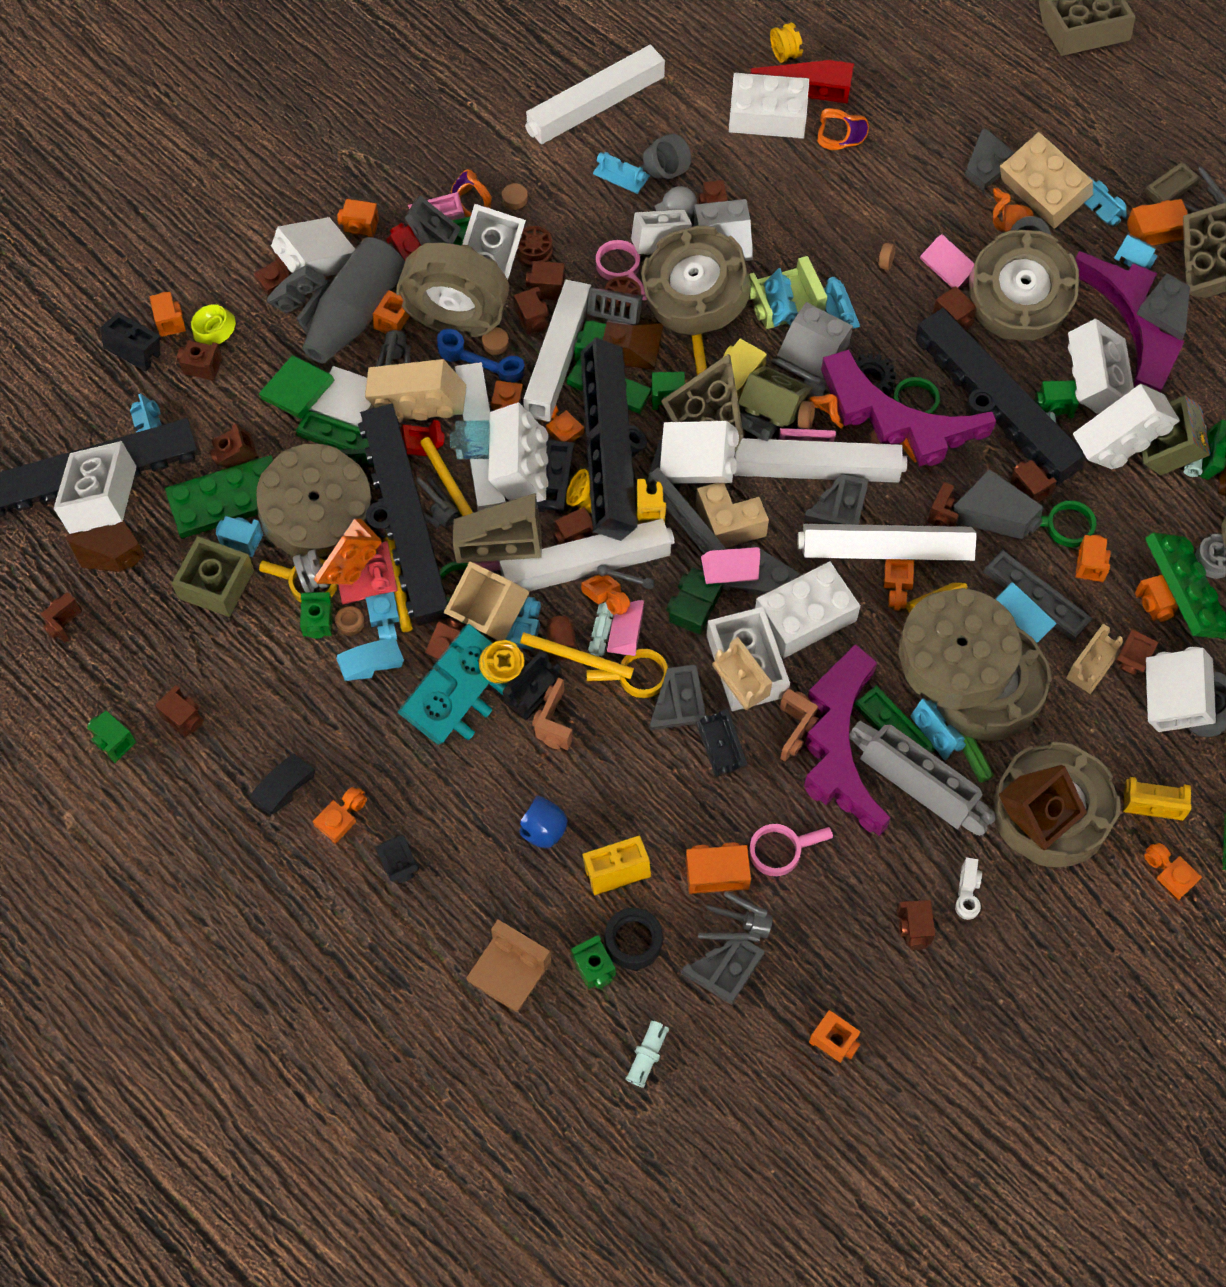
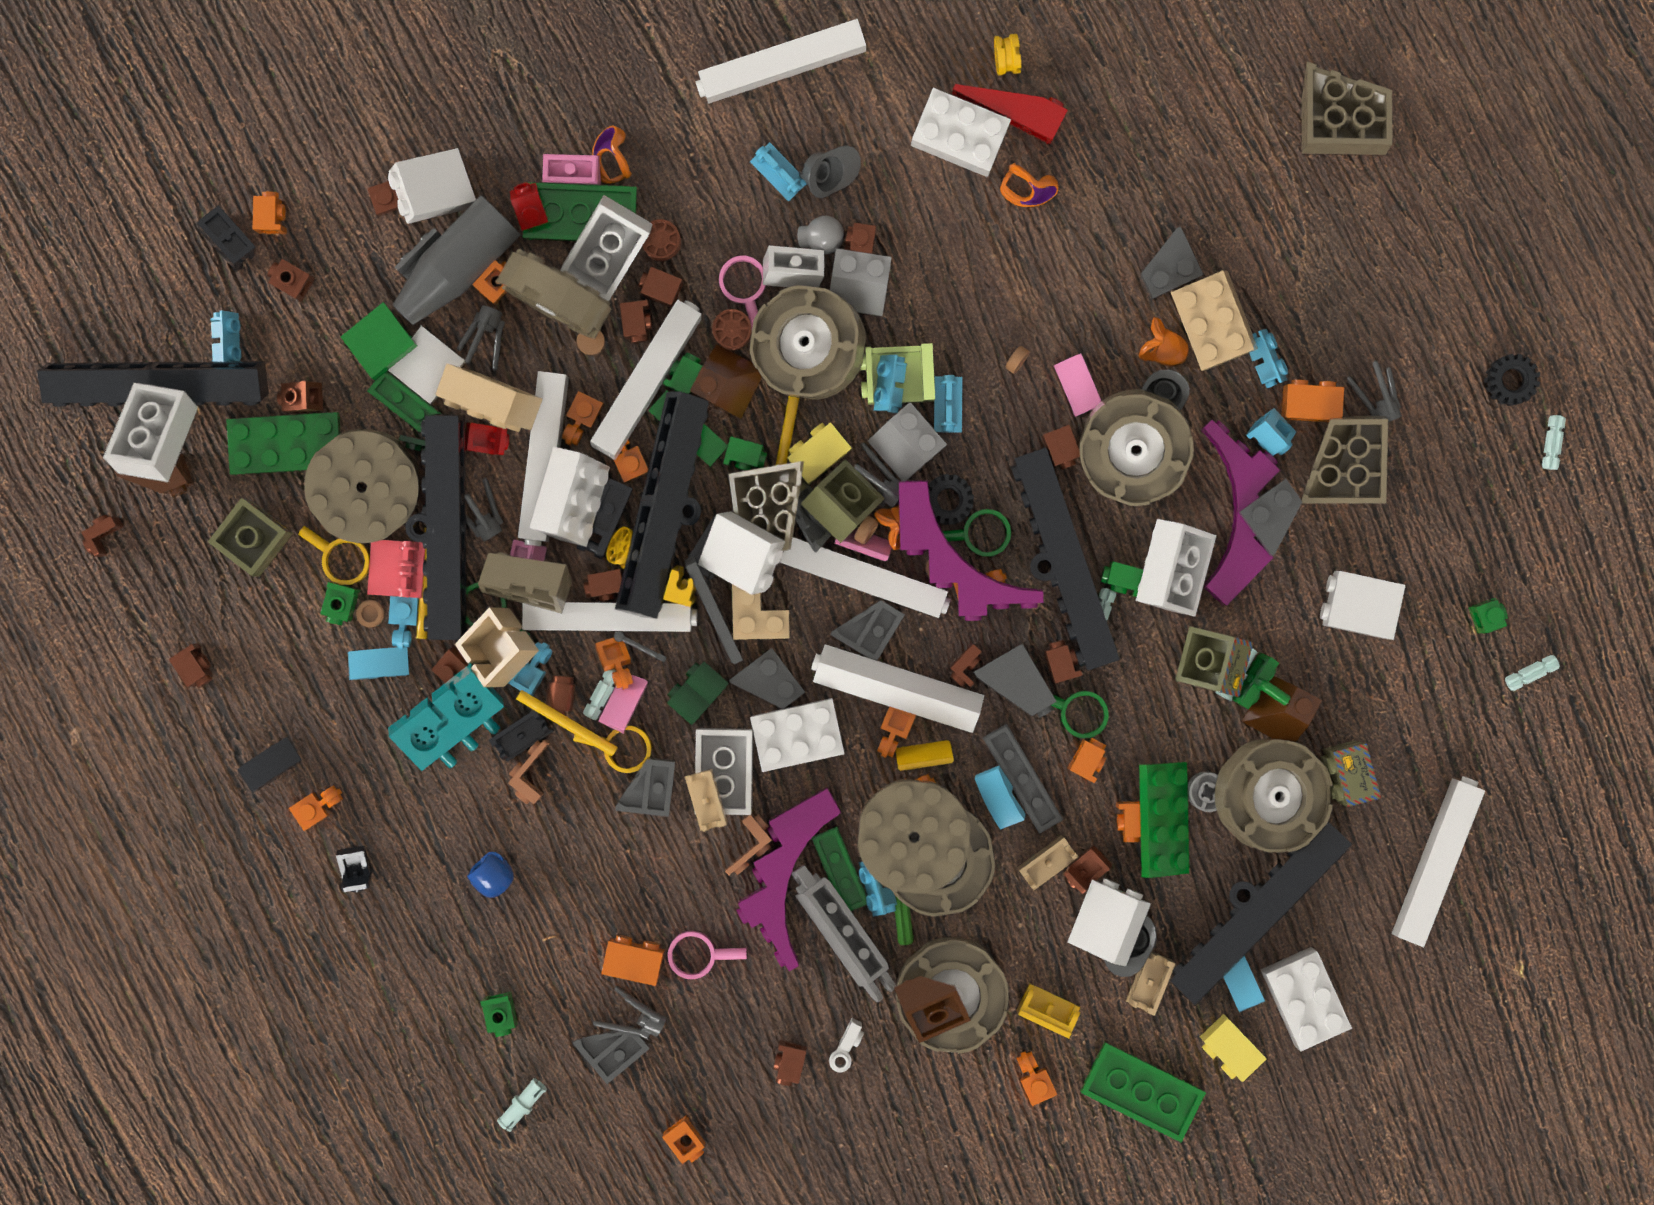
camera: 20 degrees right, 25 degrees up
(110, 736) = (124, 670): green brick -> none
(212, 324) = (313, 249): neon yellow hat -> none
(239, 534) = (285, 494): medium azure brick -> none
(292, 290) = (401, 232): dark grey slope -> none
(311, 565) = (341, 562): light grey wheel -> none
(349, 555) = (382, 557): orange bracket -> none
(359, 217) = (490, 152): orange brick -> none
(430, 223) = (556, 203): dark grey wing -> none
(445, 476) = (500, 500): yellow bar -> none
(451, 348) = (594, 381): blue piece -> none
(471, 439) = (527, 469): clear light blue brick -> none
(501, 661) = (492, 716): yellow wheel -> none
(509, 966) = (425, 995): medium nougat bracket -> none
(514, 196) = (660, 167): medium nougat tile -> none
(617, 865) = (545, 931): yellow hinge -> none
(633, 915) = (520, 1007): black tyre -> none
(635, 307) = (732, 351): dark grey slope -> none
(721, 743) = (674, 845): black hinge -> none
(731, 565) = (738, 675): bright pink slope -> none
(1126, 427) = (1167, 650): white brick -> none
(1172, 184) = (1349, 354): dark tan tile -> none

